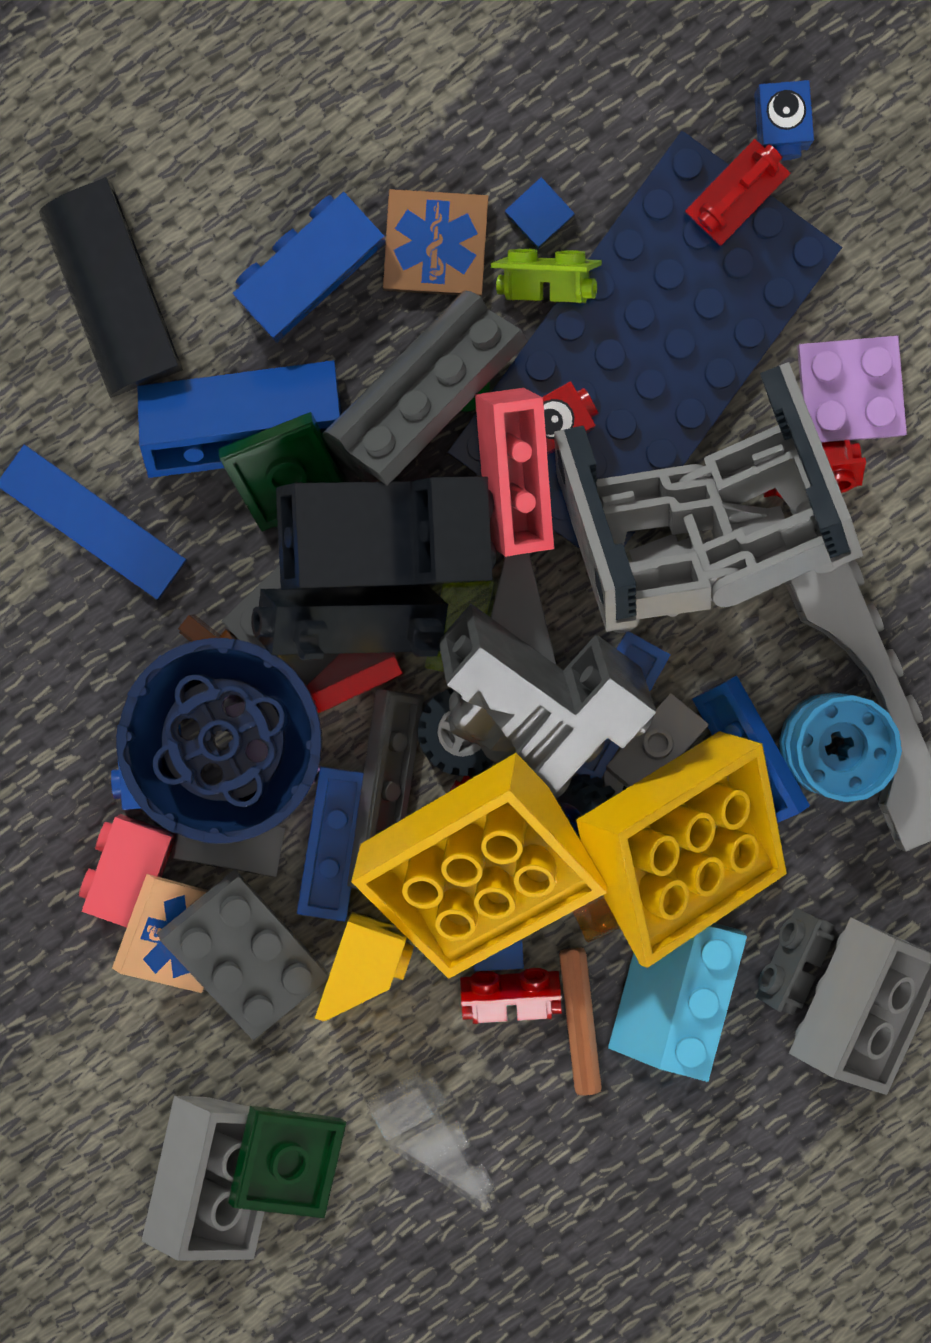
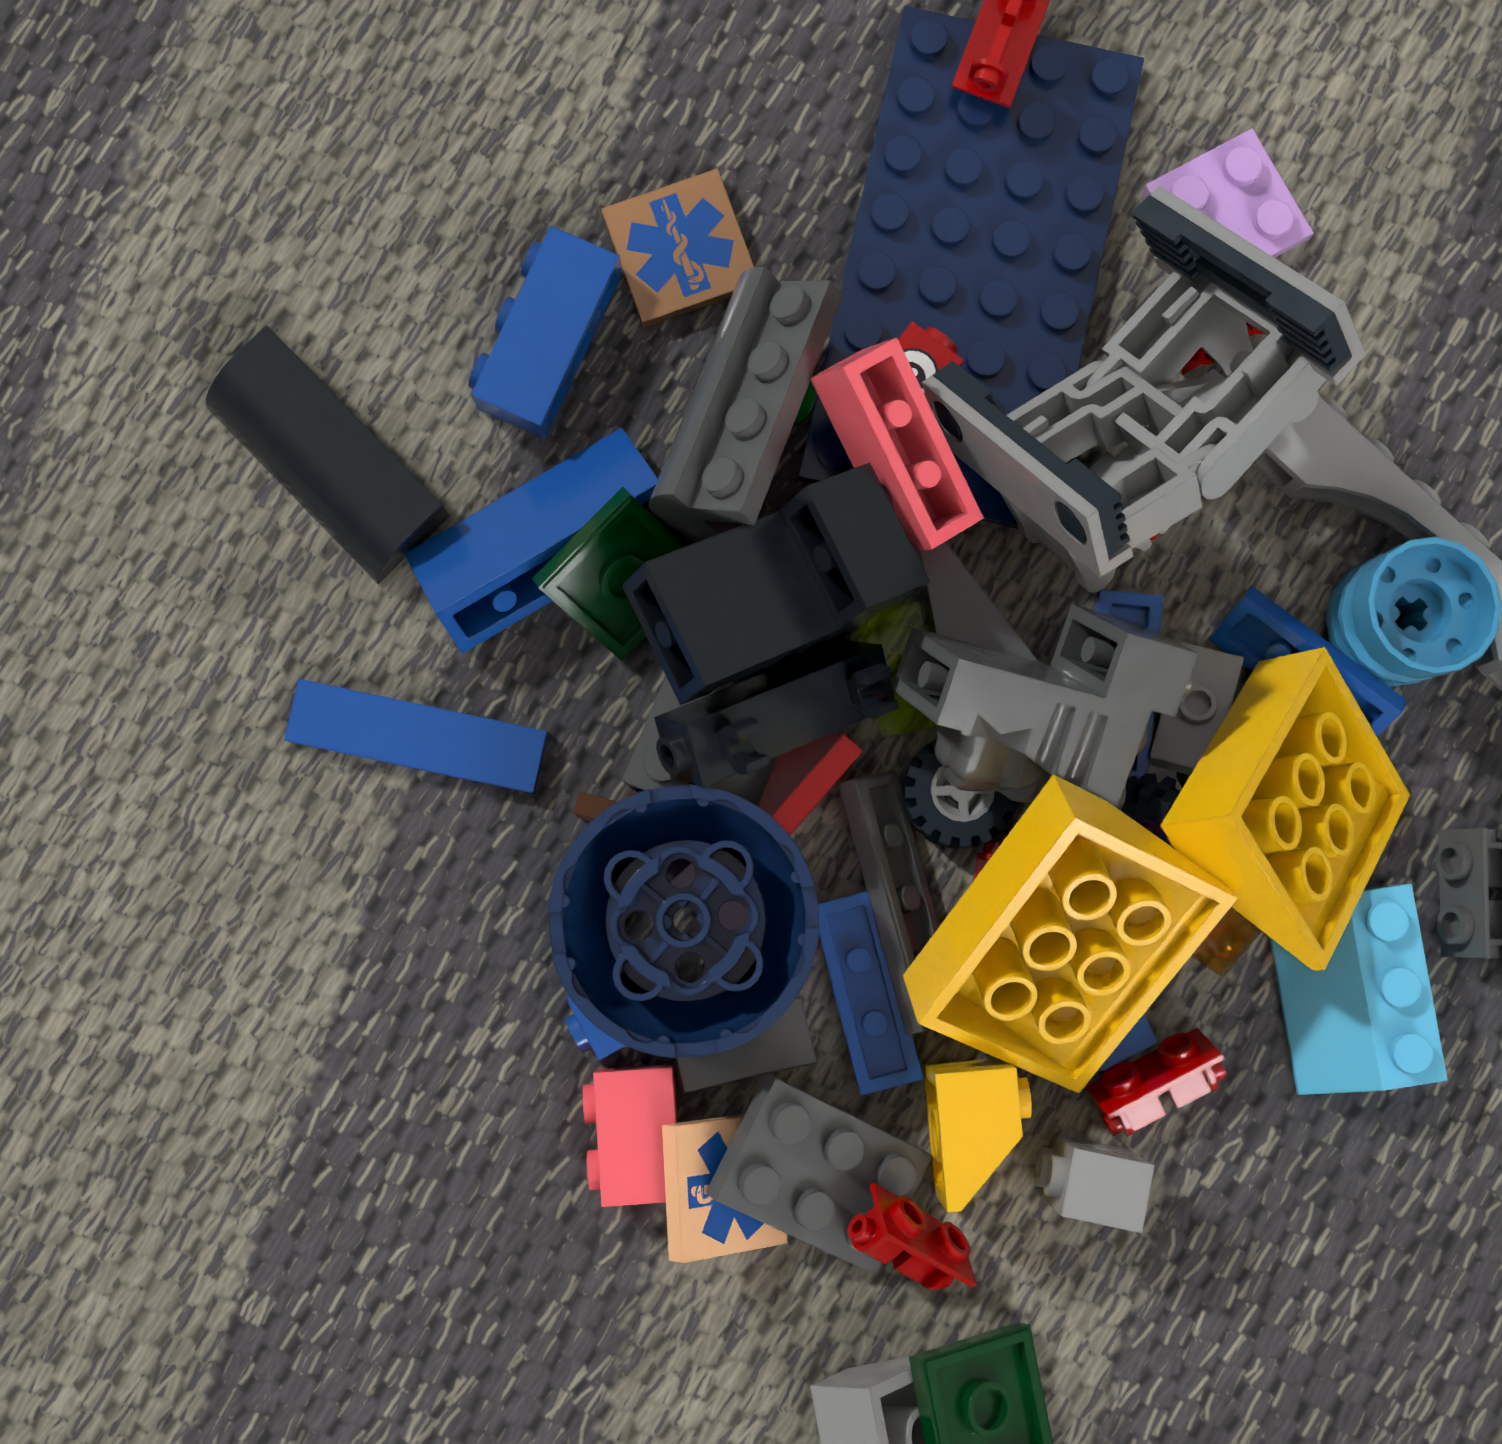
camera: 30 degrees left, 5 degrees down
(298, 1039) = (913, 1240): none -> red hinge
(421, 1133) = (1132, 1302): clear slope -> none
(430, 1043) = (1094, 1182): none -> light grey brick
(539, 213) = (784, 165): blue tile -> none
(566, 274) = (848, 214): lime hinge -> none
(580, 1021) = (1253, 1077): nougat axle -> none

